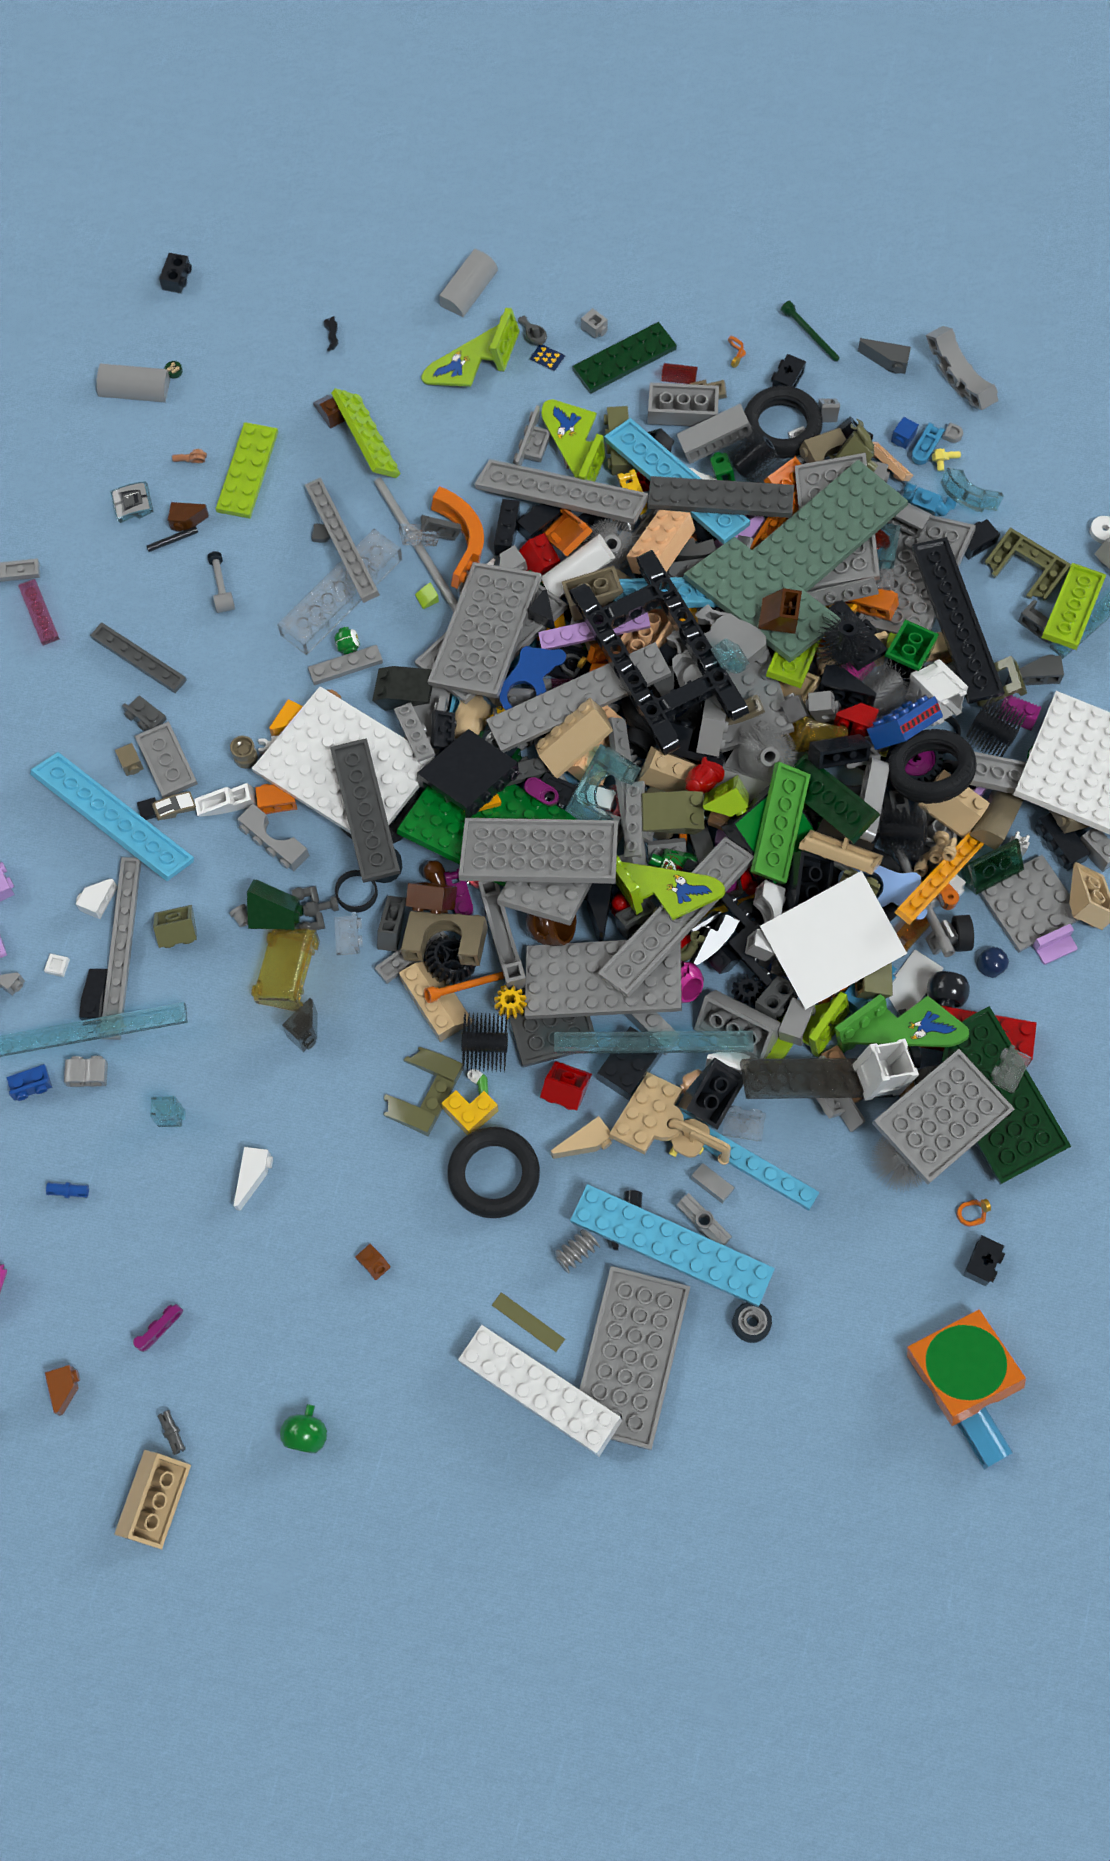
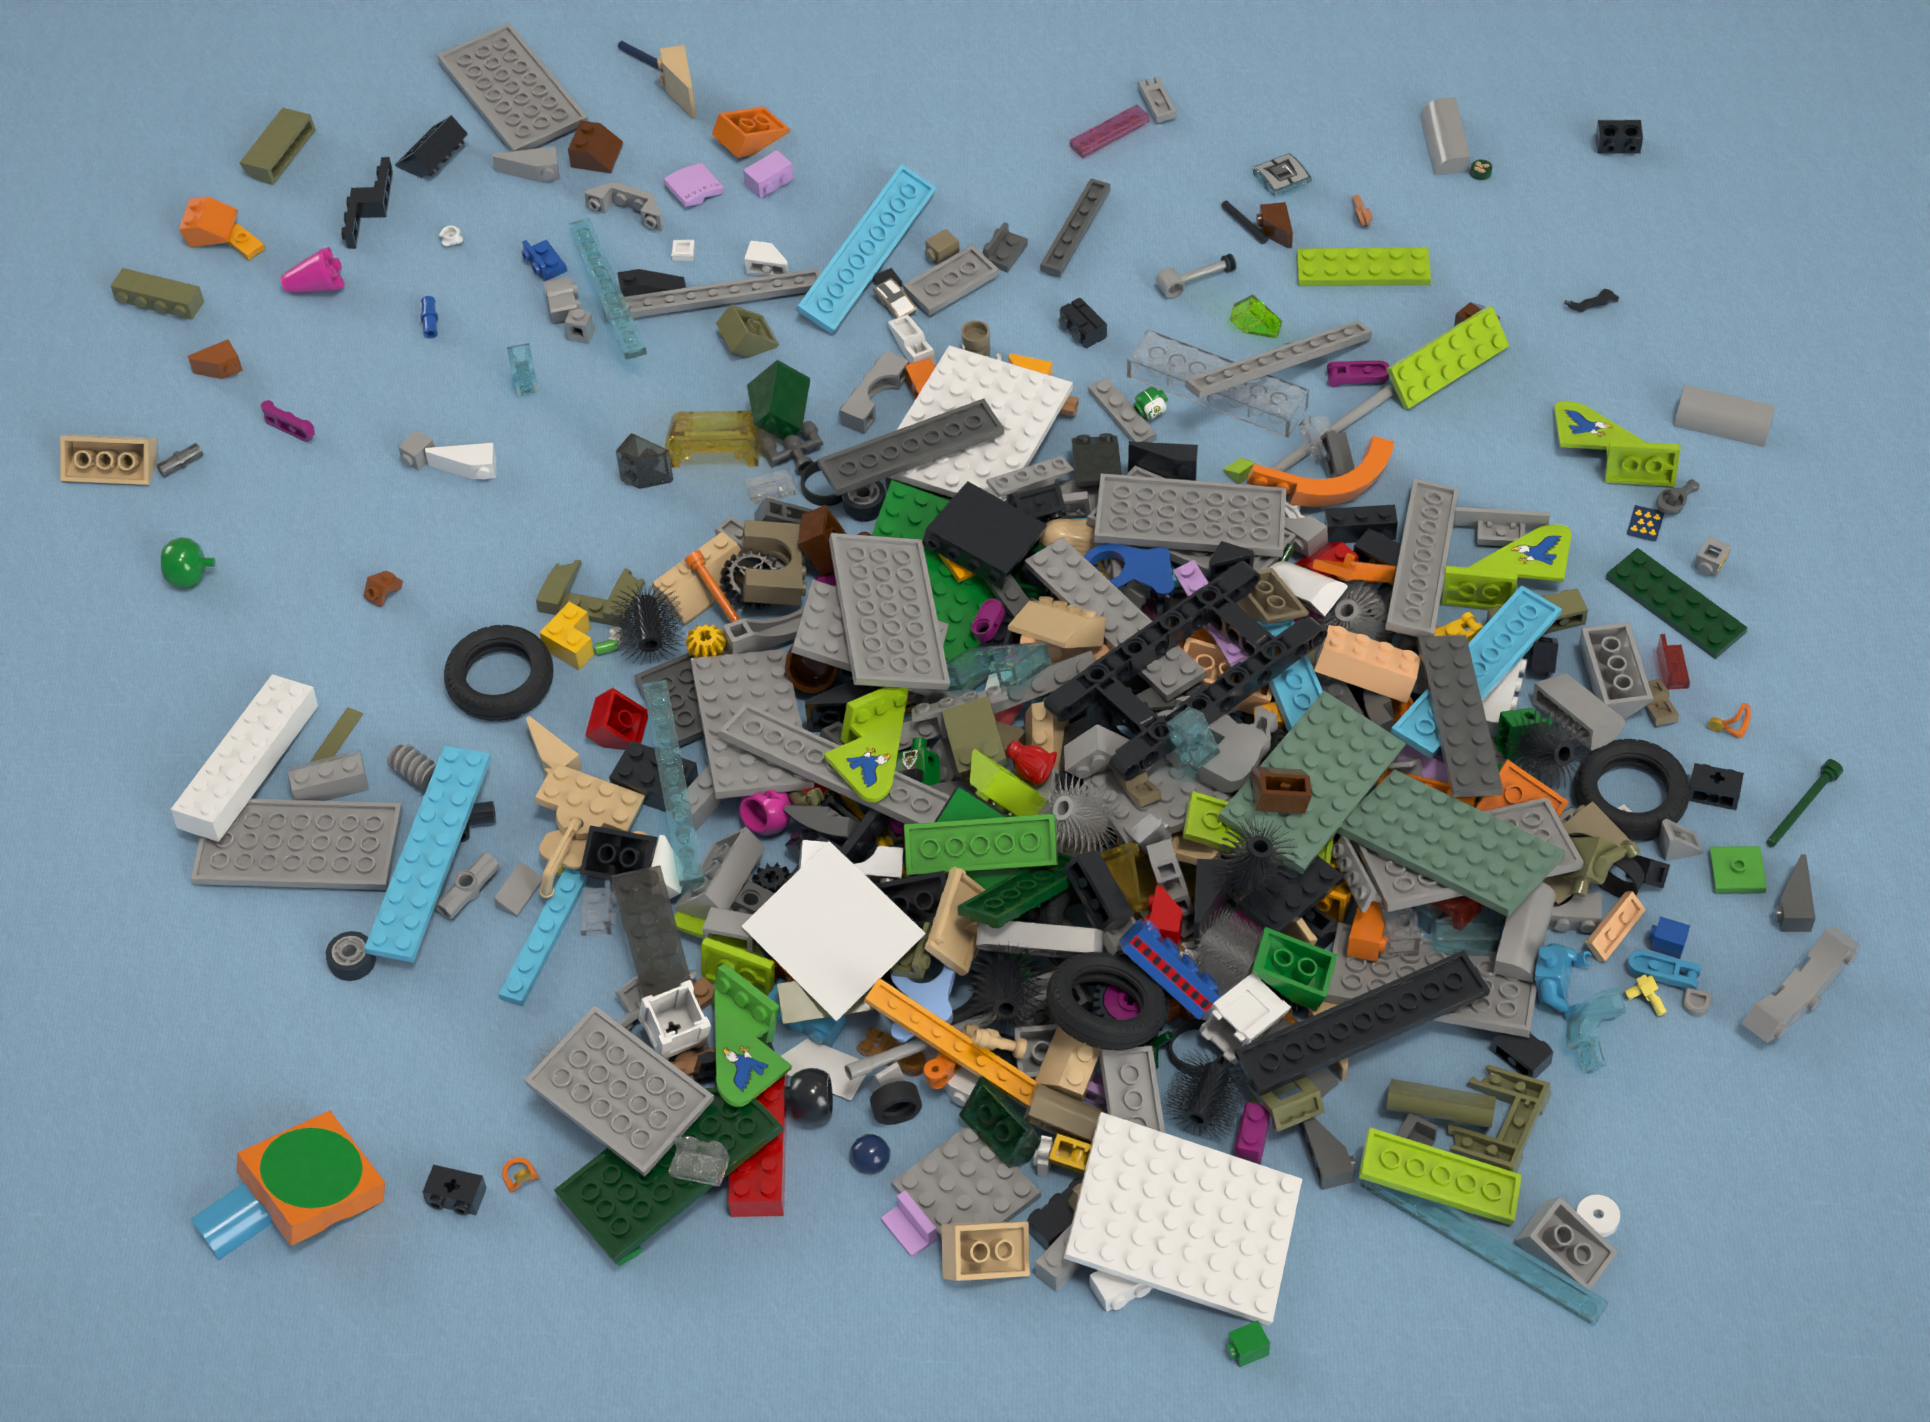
camera: 80 degrees right, 15 degrees down
(122, 1058) = (581, 320): none -> light grey brick
(227, 1216) = (413, 450): none -> light grey brick
(246, 672) = (1083, 323): none -> black brick
(281, 551) = (1255, 318): none -> clear neon green slope
(356, 497) = (1357, 372): none -> magenta plate
(423, 633) = (1165, 459): none -> black slope
(564, 1325) = (329, 777): none -> light grey slope
(854, 382) = (1737, 869): none -> bright green plate
(1015, 593) = (1441, 1103): none -> olive brick
(1026, 820) = (1070, 1154): none -> yellow brick

